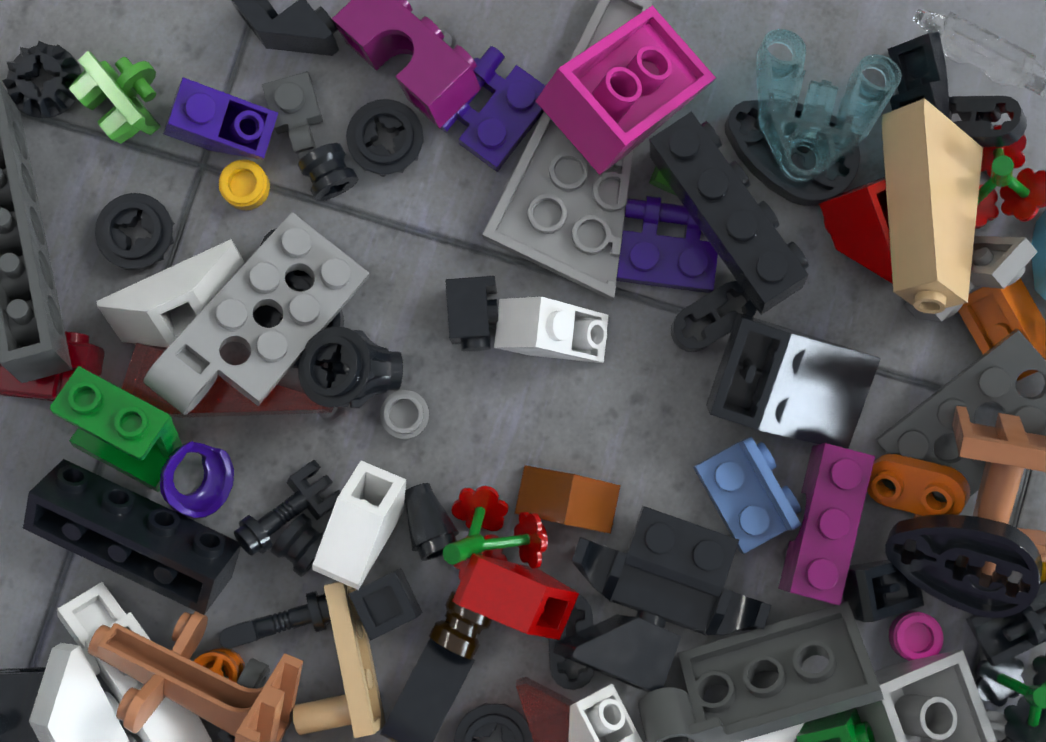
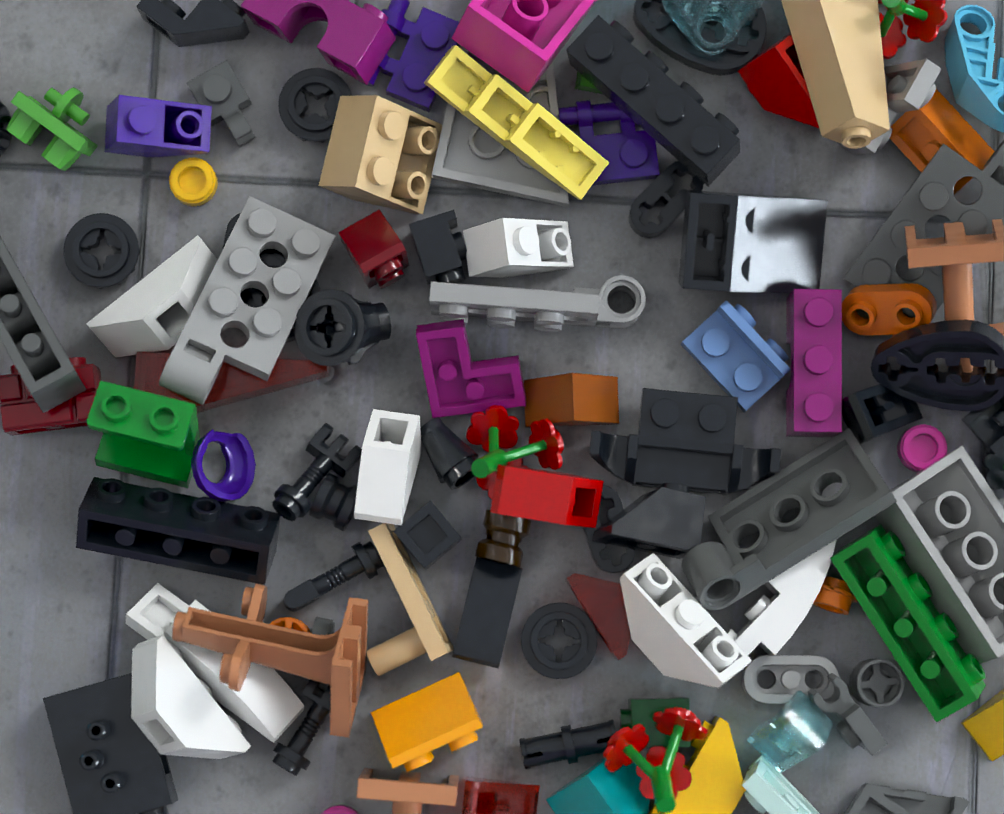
camera: 20 degrees left, 0 degrees up
(327, 171) = (271, 150): black wheel -> none
(404, 298) = (375, 250): none -> dark red slope
(404, 414) = (399, 360): light grey plate -> none
(436, 201) = (381, 153): none -> tan slope
(458, 456) = (457, 383): none -> magenta plate
(565, 402) = (542, 307): none -> light grey hinge
(581, 202) = (516, 122): none -> light yellow slope

